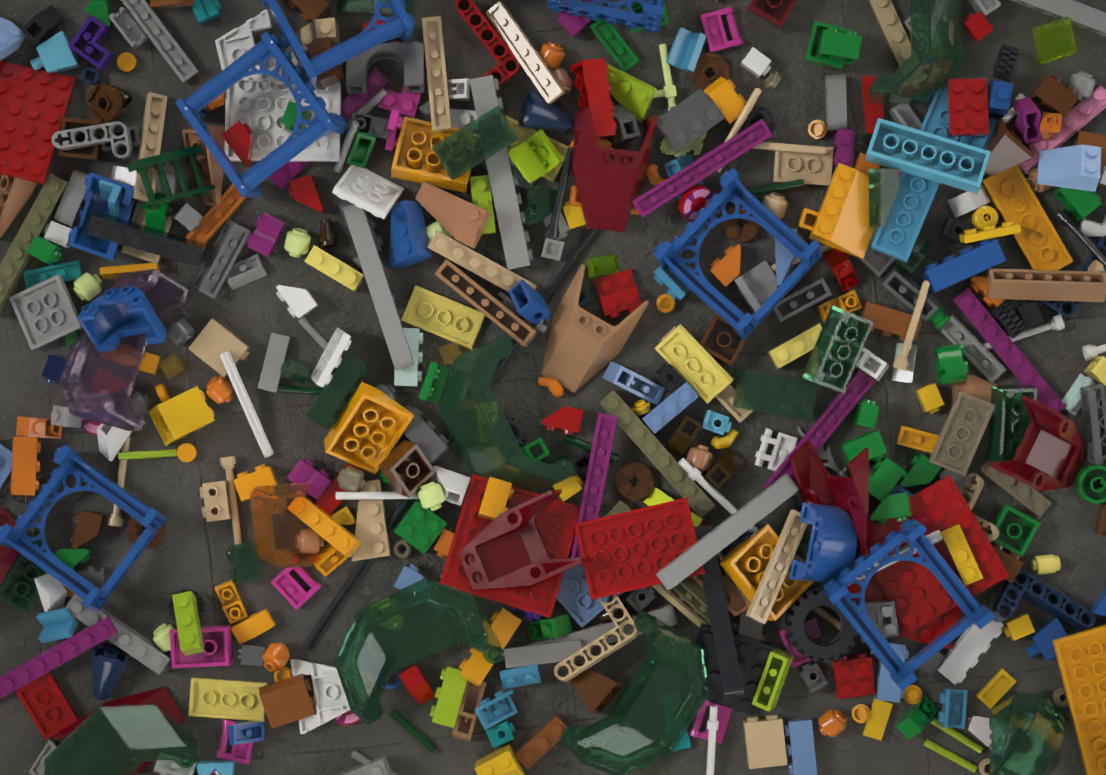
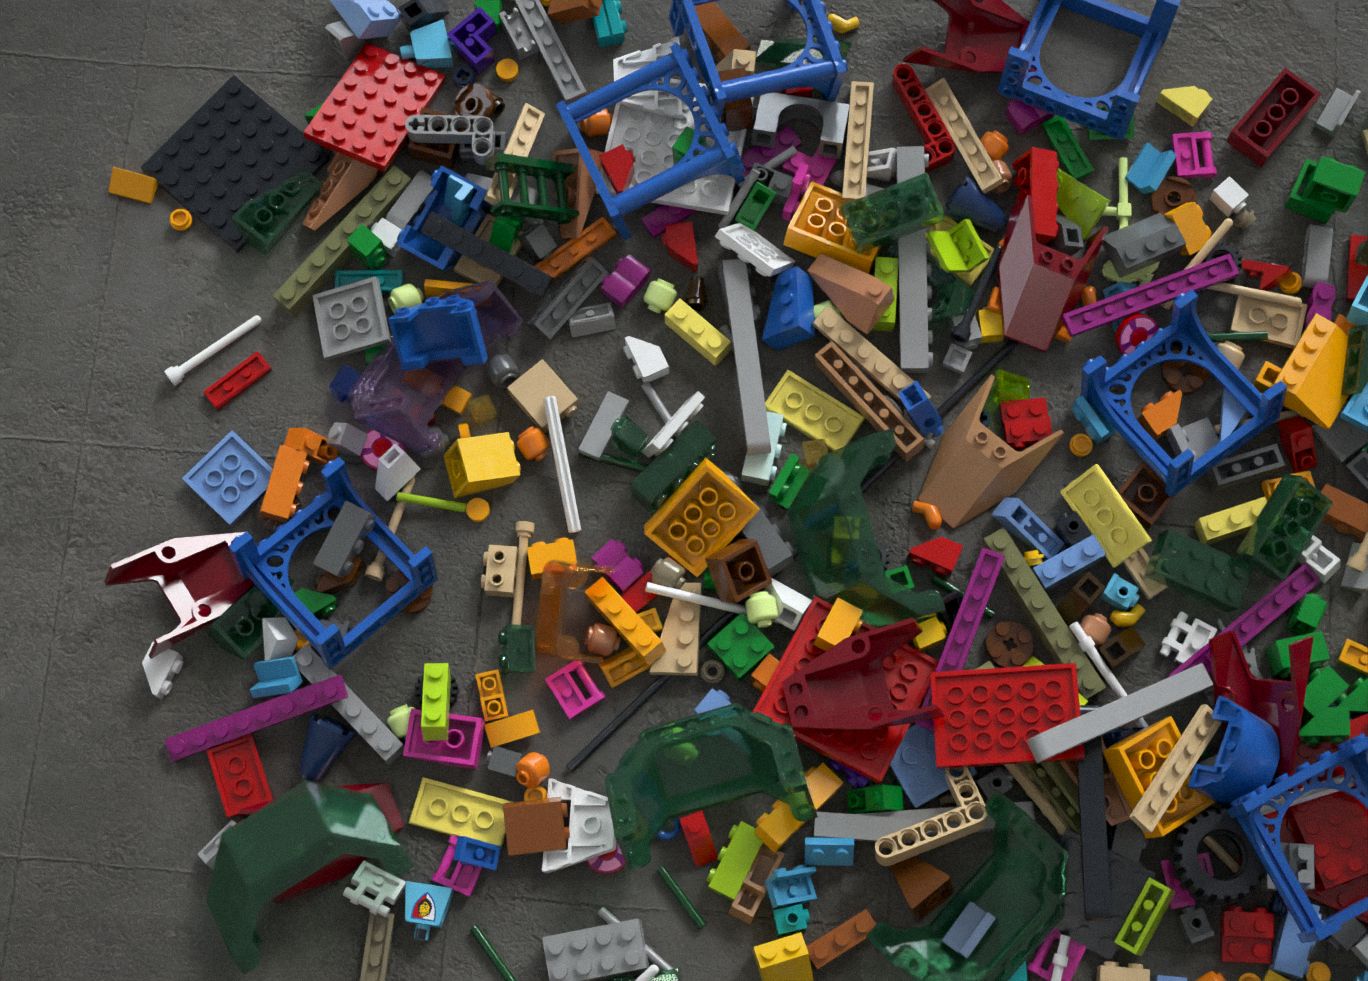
camera: 15 degrees right, 15 degrees down
(85, 506) = (345, 540): none -> dark grey brick
(638, 715) = (968, 929): none -> sand blue panel
(798, 127) = (1271, 273): none -> red slope

